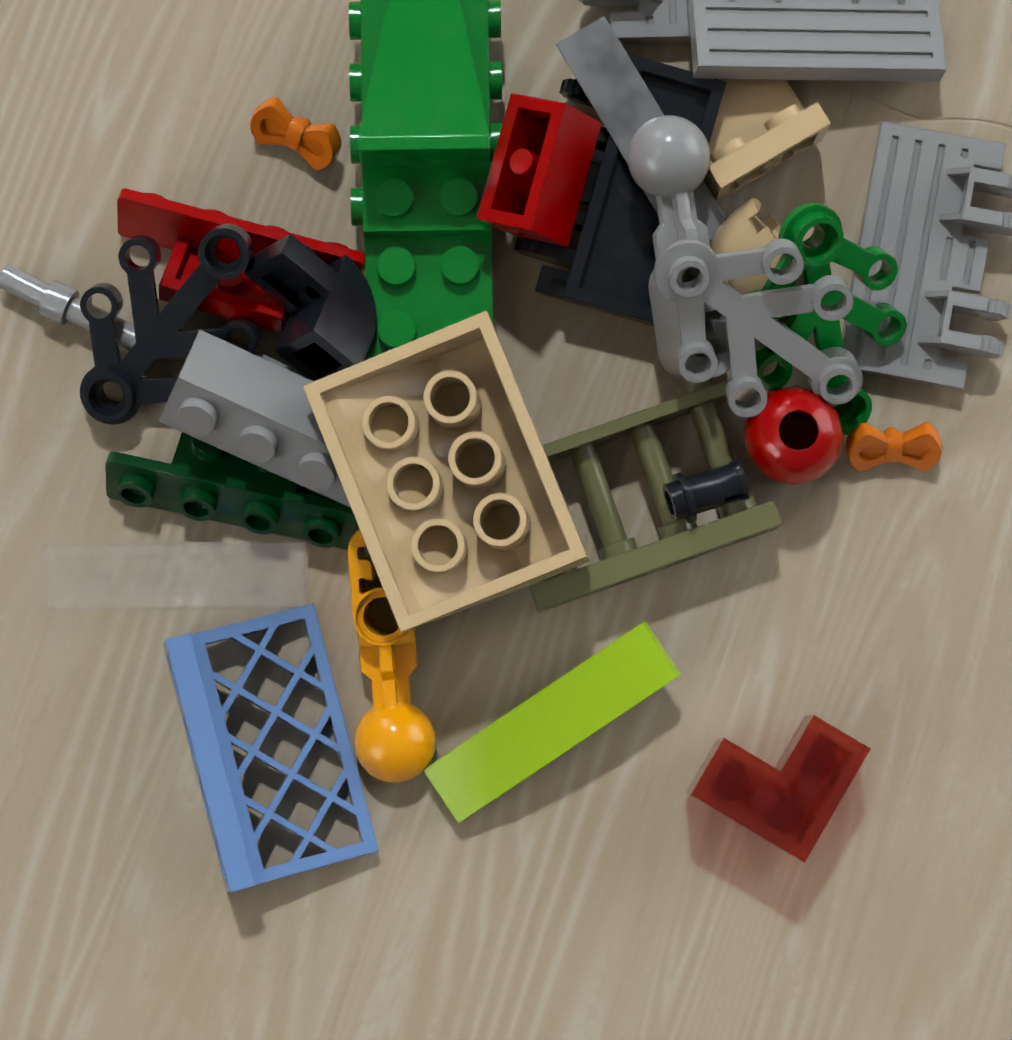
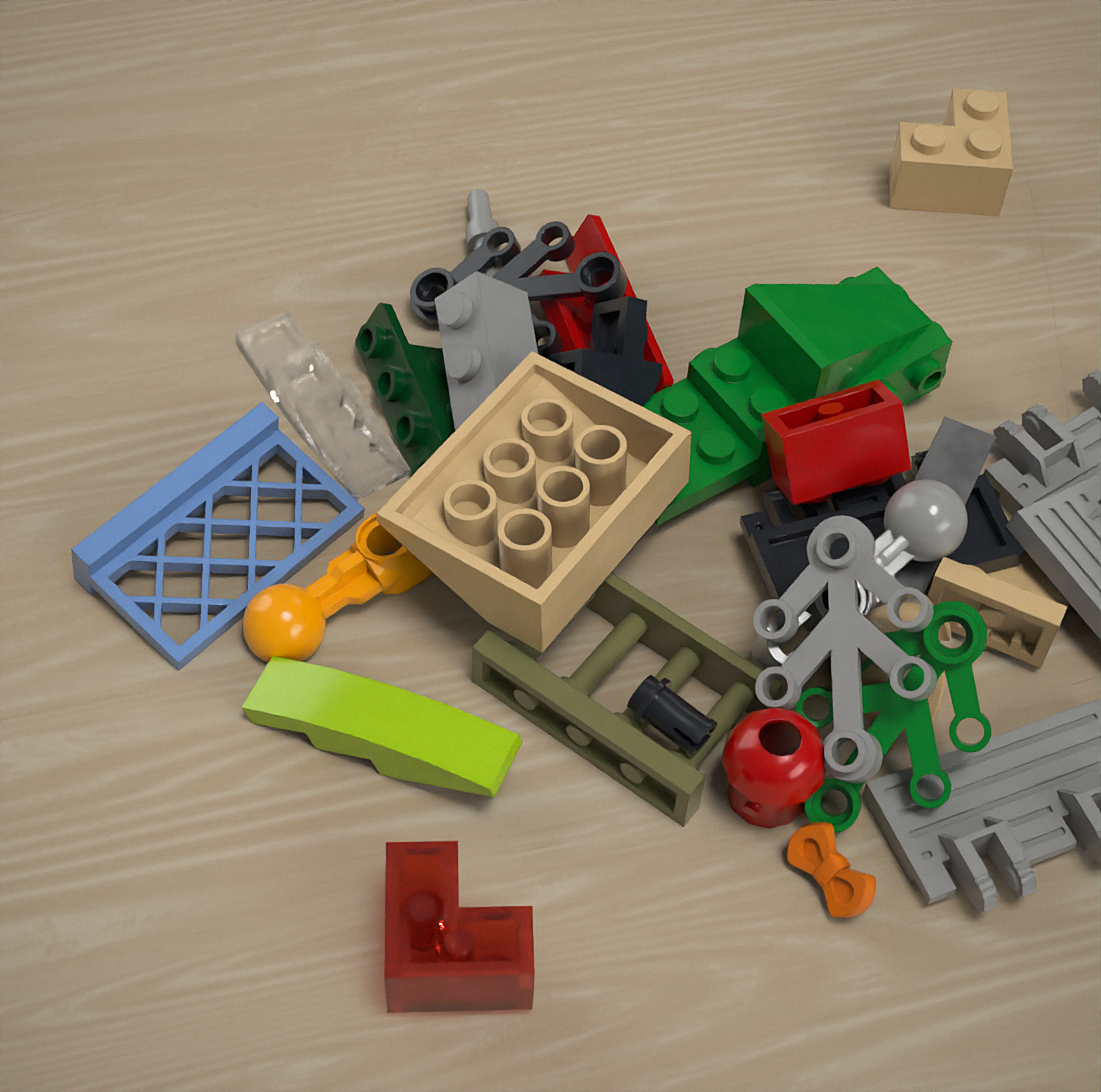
camera: 55 degrees right, 30 degrees down
(275, 125) = (725, 295): orange piece -> none

